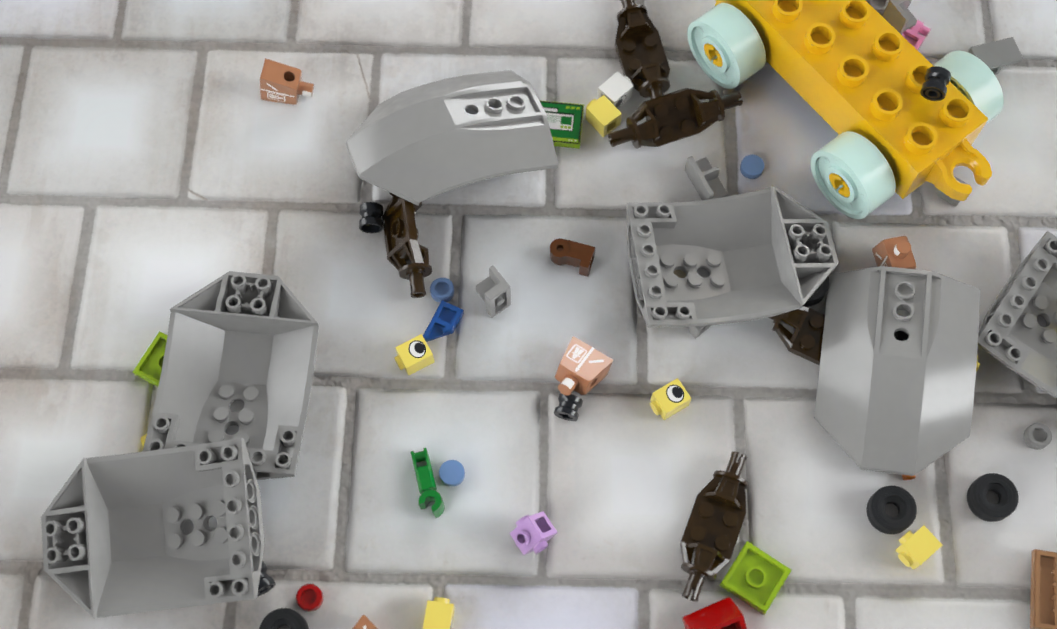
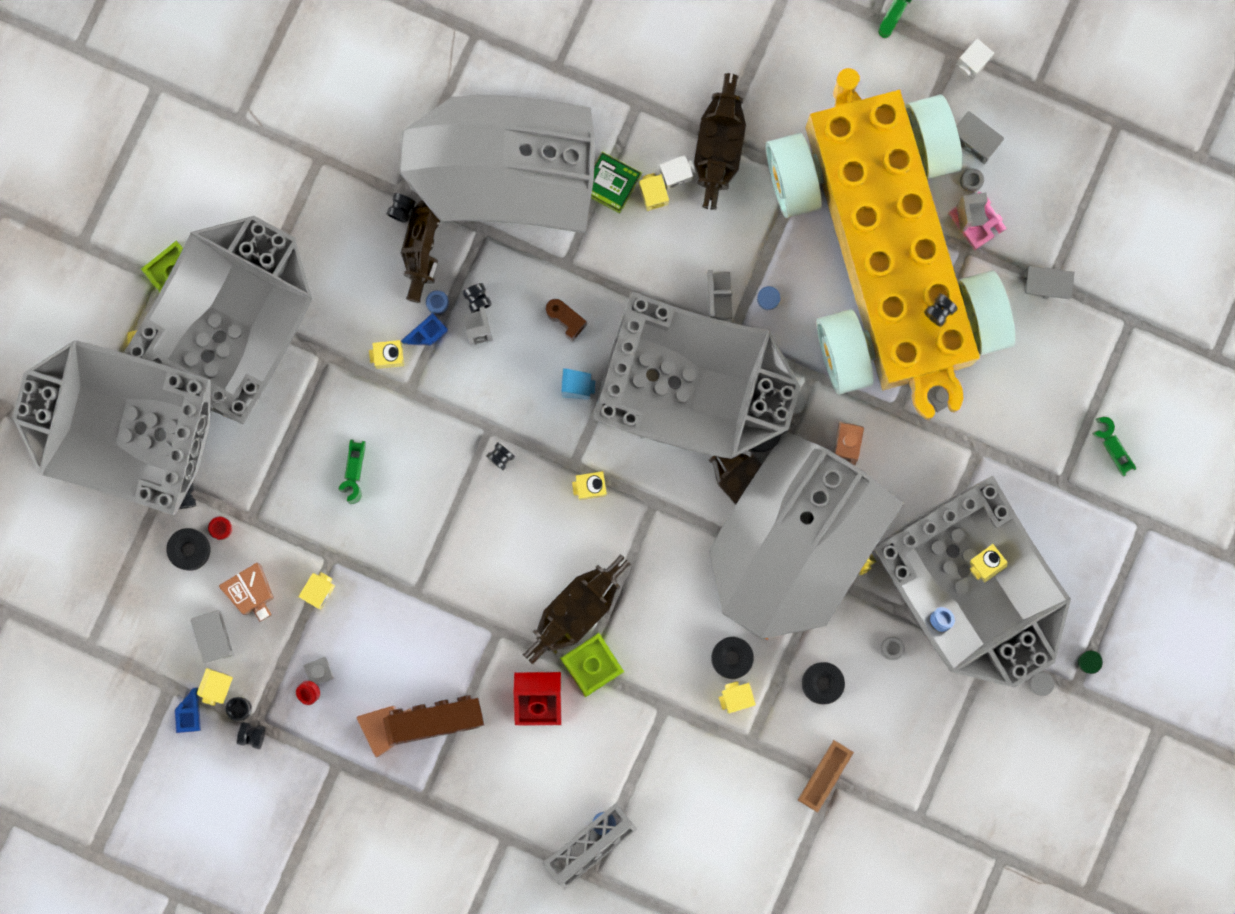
camera: 20 degrees right, 15 degrees up
(283, 83) = (365, 33): nougat torso -> none
(452, 473) = (378, 472): medium blue tile -> none
(477, 268) = (477, 297): none -> black wheel
(533, 533) = (423, 553): lavender brick -> none
(581, 368) = (525, 427): torso -> none
(612, 309) = (577, 384): none -> dark azure slope
(674, 117) = (715, 223): dark brown plate -> none

